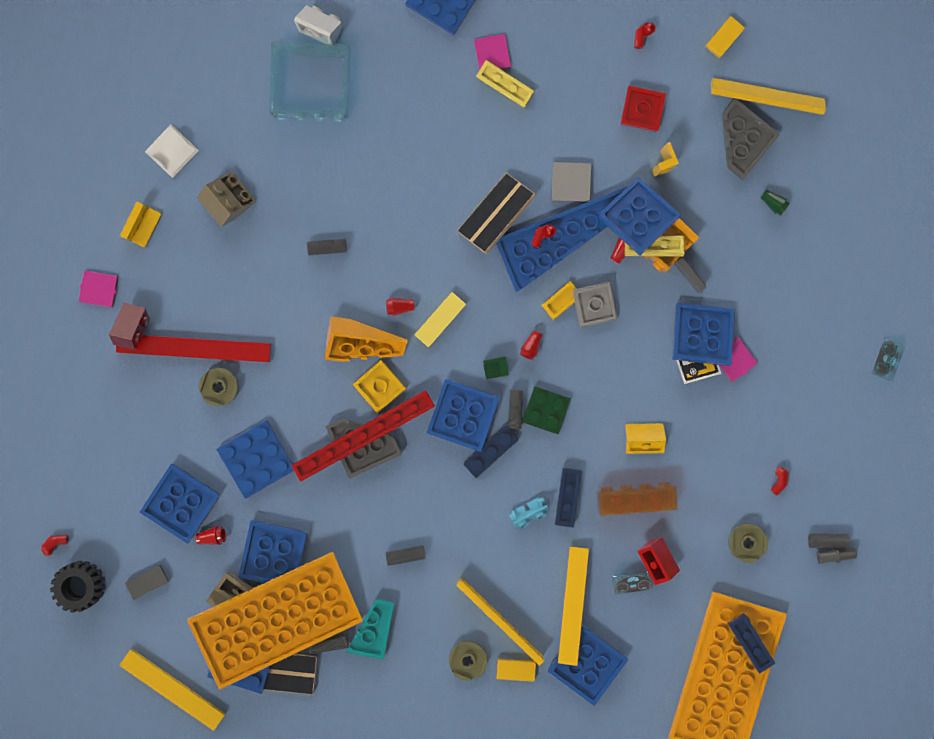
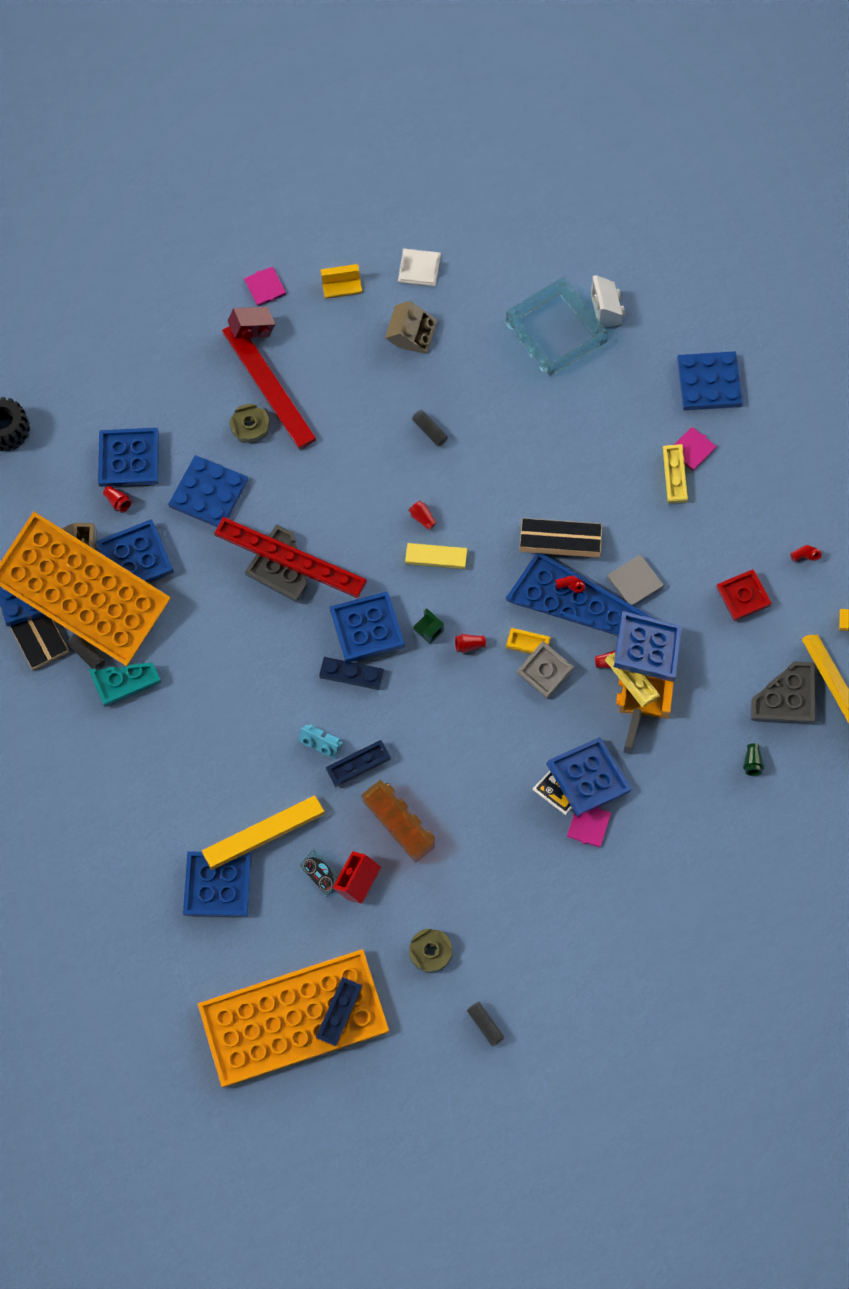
camera: 65 degrees right, 20 degrees down
(48, 546) = (20, 383): red arm -> none
(147, 582) = (42, 476): dark grey tile -> none
(355, 340) = (367, 500): light orange wedge -> none
(379, 386) = (342, 546): yellow tile -> none
(405, 553) = (197, 654): dark grey piece -> none
(472, 670) = (159, 785): olive plate -> none
(500, 621) = (205, 780): yellow tile -> none
(515, 669) = (169, 825): yellow tile -> none
(517, 405) = (415, 662): dark grey piece -> none
(546, 410) = (422, 694): dark green plate -> none
(645, 438) = (458, 793): yellow panel -> none
(669, 163) = (709, 642): yellow panel -> none
(783, 480) = (510, 942): red arm -> none
(836, 555) = (477, 1041): dark grey axle -> none
(888, 359) = (694, 963): clear light blue slope -> none

